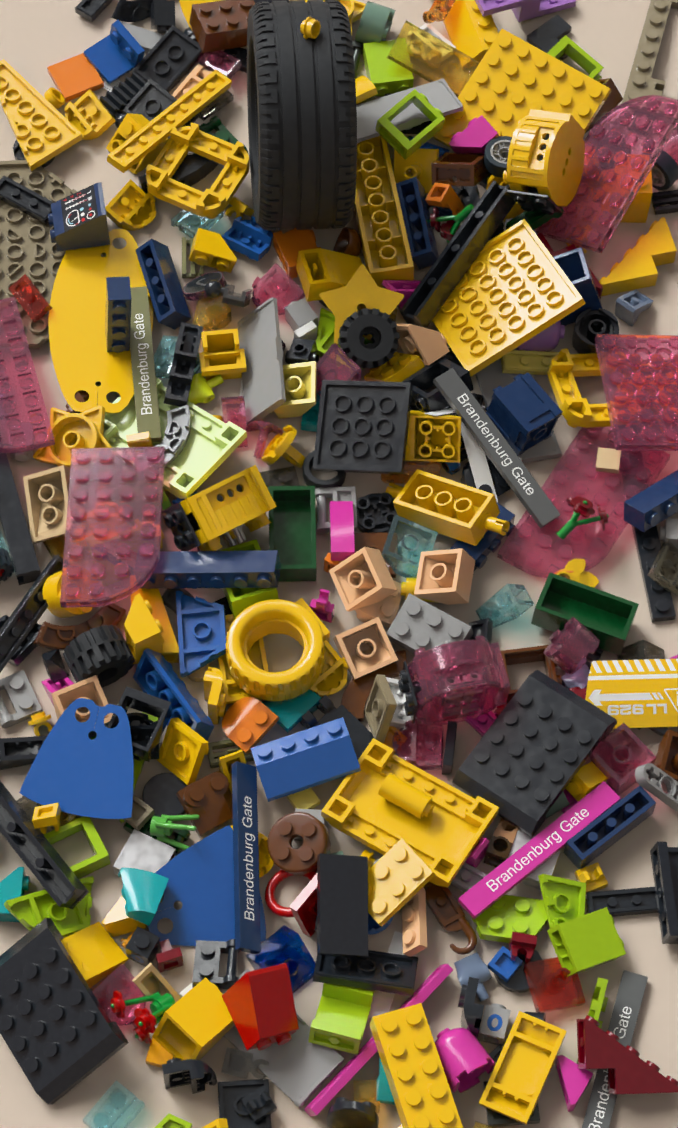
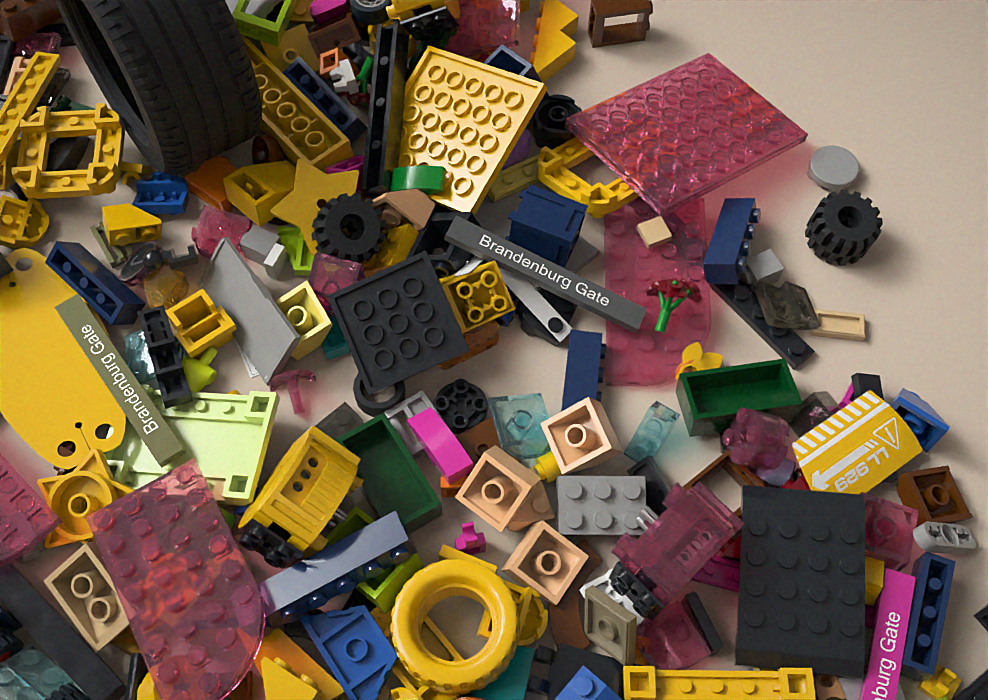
camera: 30 degrees left, 0 degrees up
(118, 314) = (59, 335): brick -> none
(139, 440) = (161, 465): yellow tile -> none
(176, 433) = (198, 434): tile -> none
(190, 222) = (90, 207): clear light blue plate -> none
(234, 411) = (248, 377): clear pink slope -> none
(281, 446) = (320, 389): yellow tile -> none
(302, 351) = (284, 279): black brick -> none
(444, 212) = (347, 81): none -> white tile
(448, 325) = (424, 178): none -> green slope
(448, 507) = (535, 361): yellow brick -> none
(631, 305) = (571, 83): sand blue slope -> none

